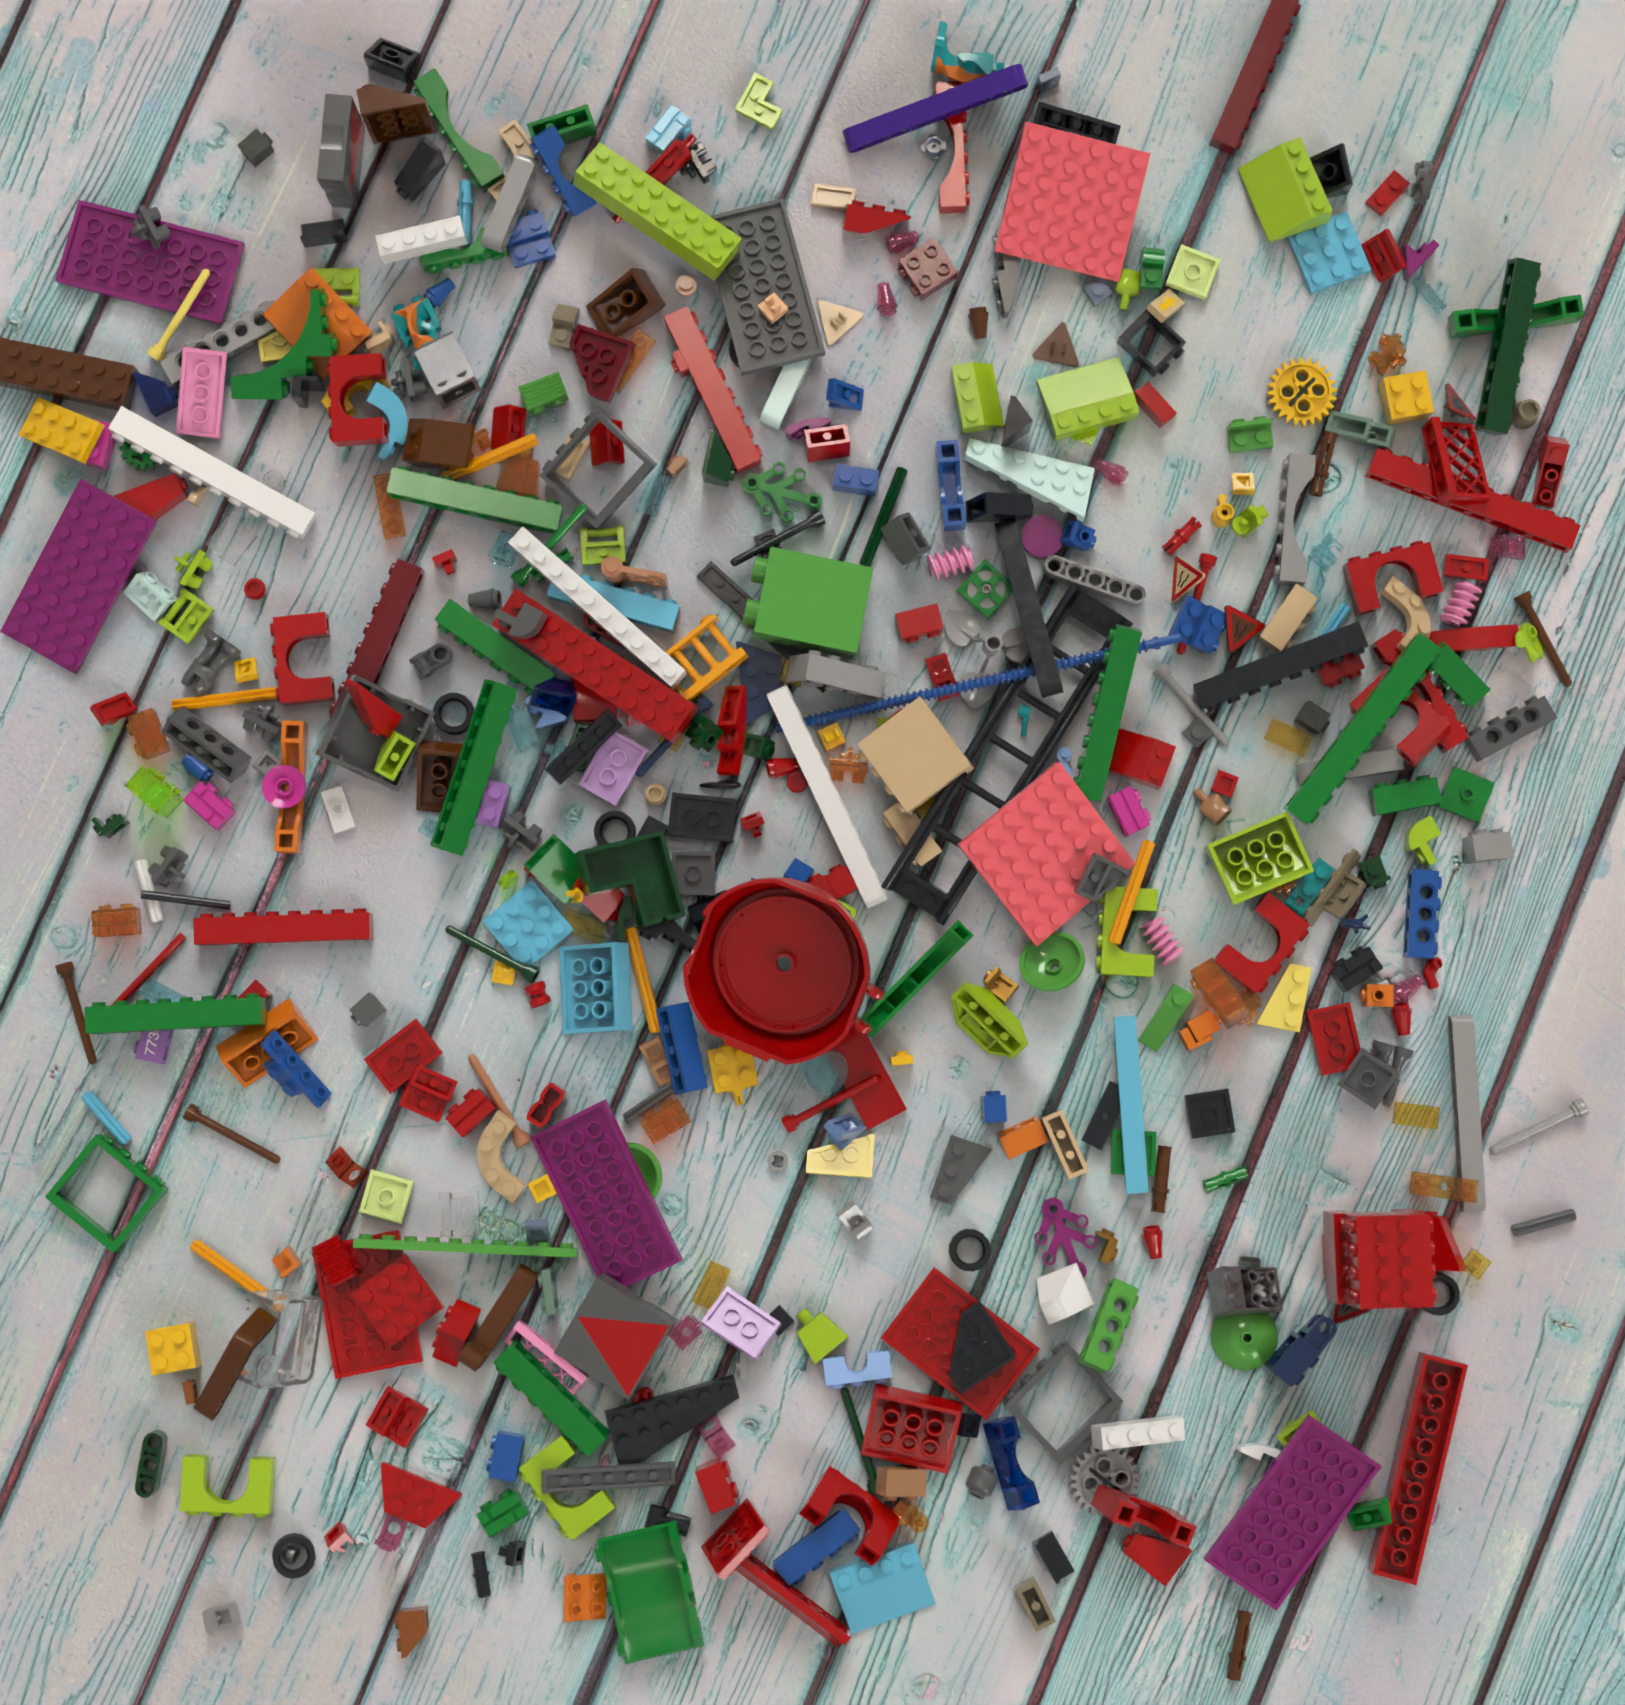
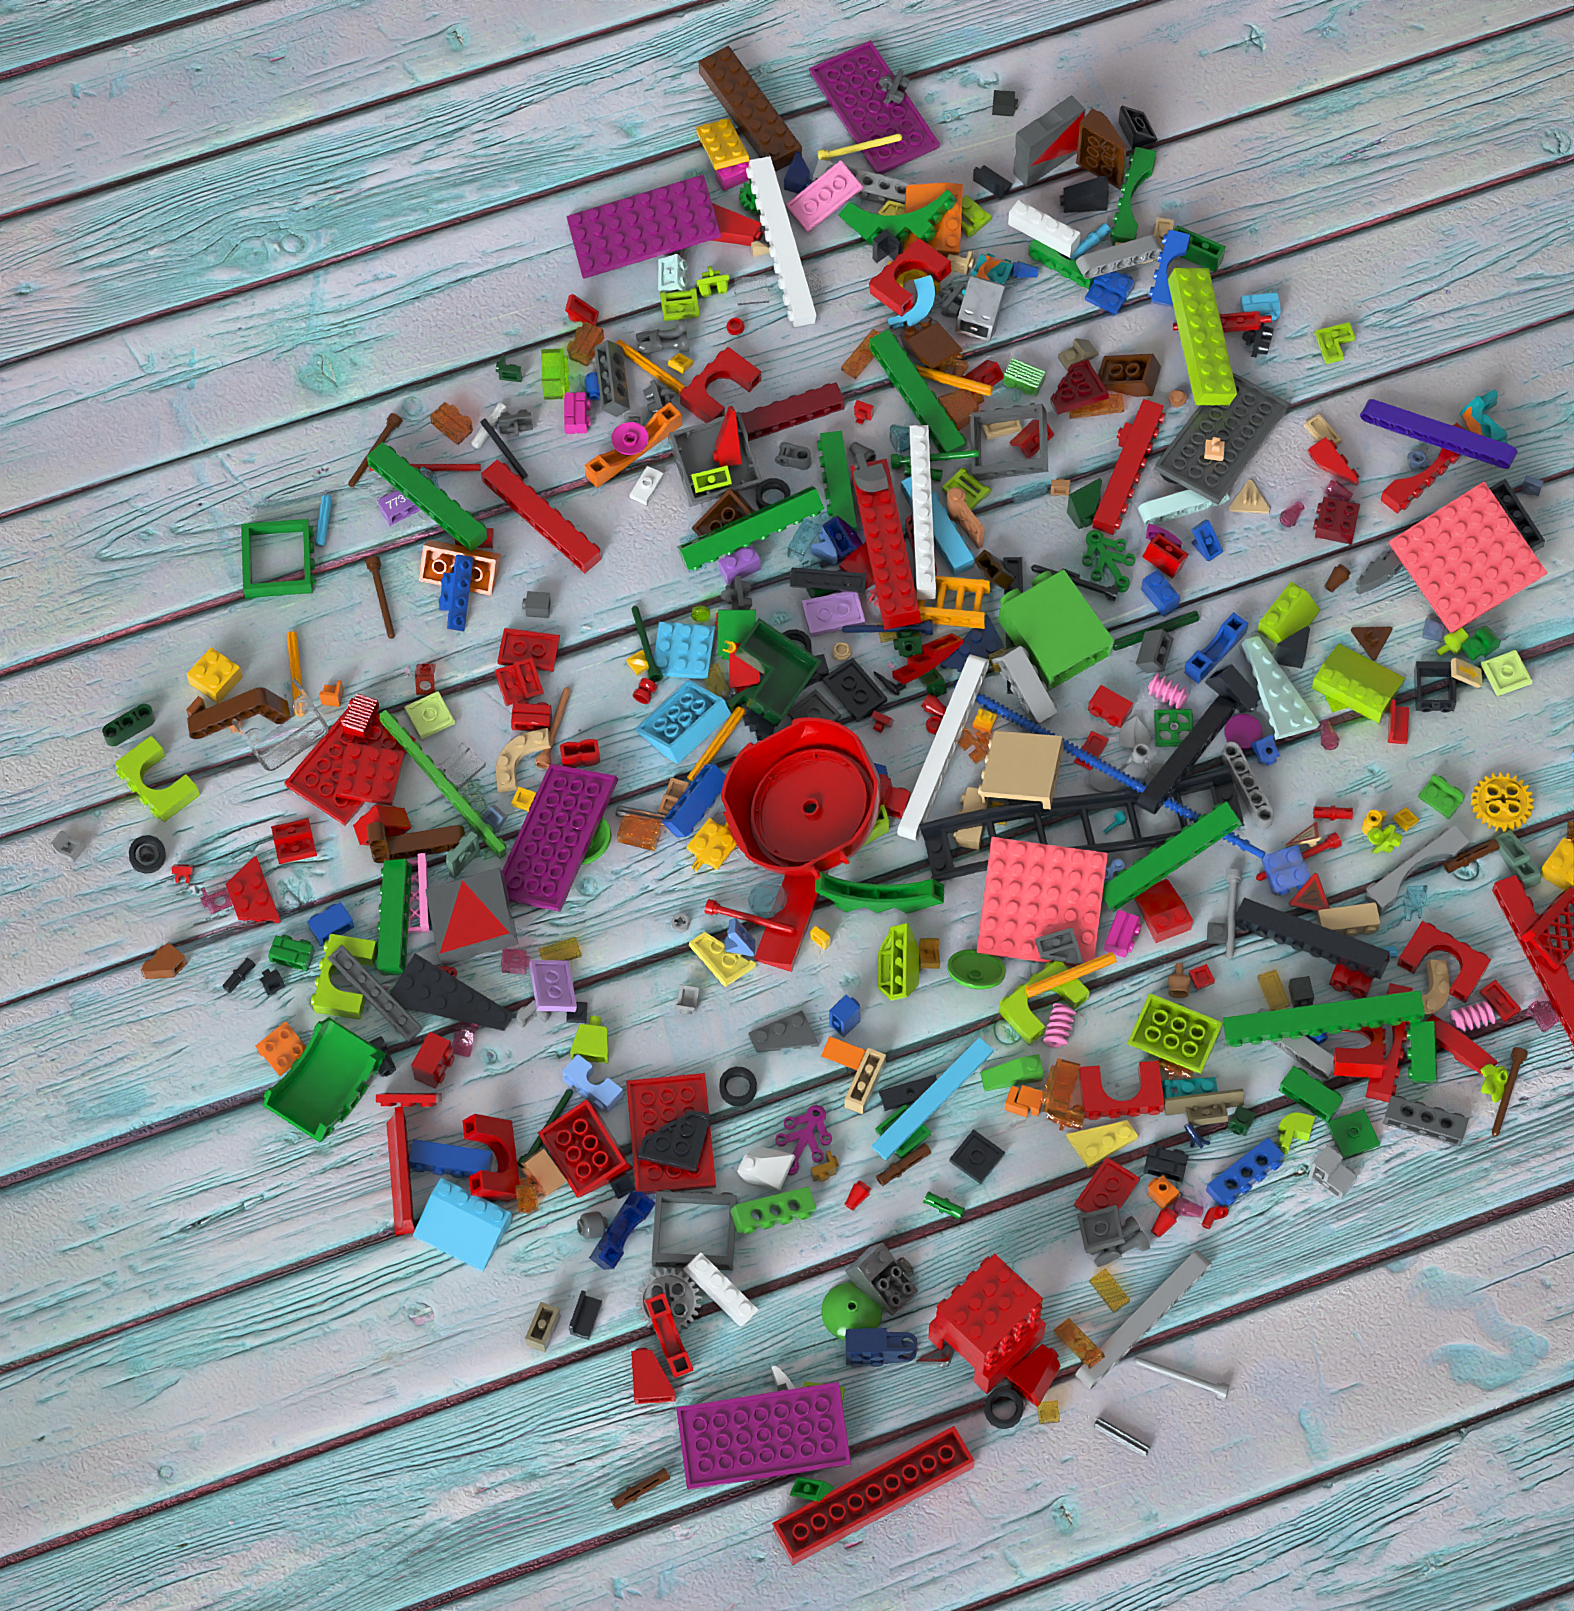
camera: 50 degrees right, 20 degrees down
(704, 597) = (994, 569): none -> dark brown brick

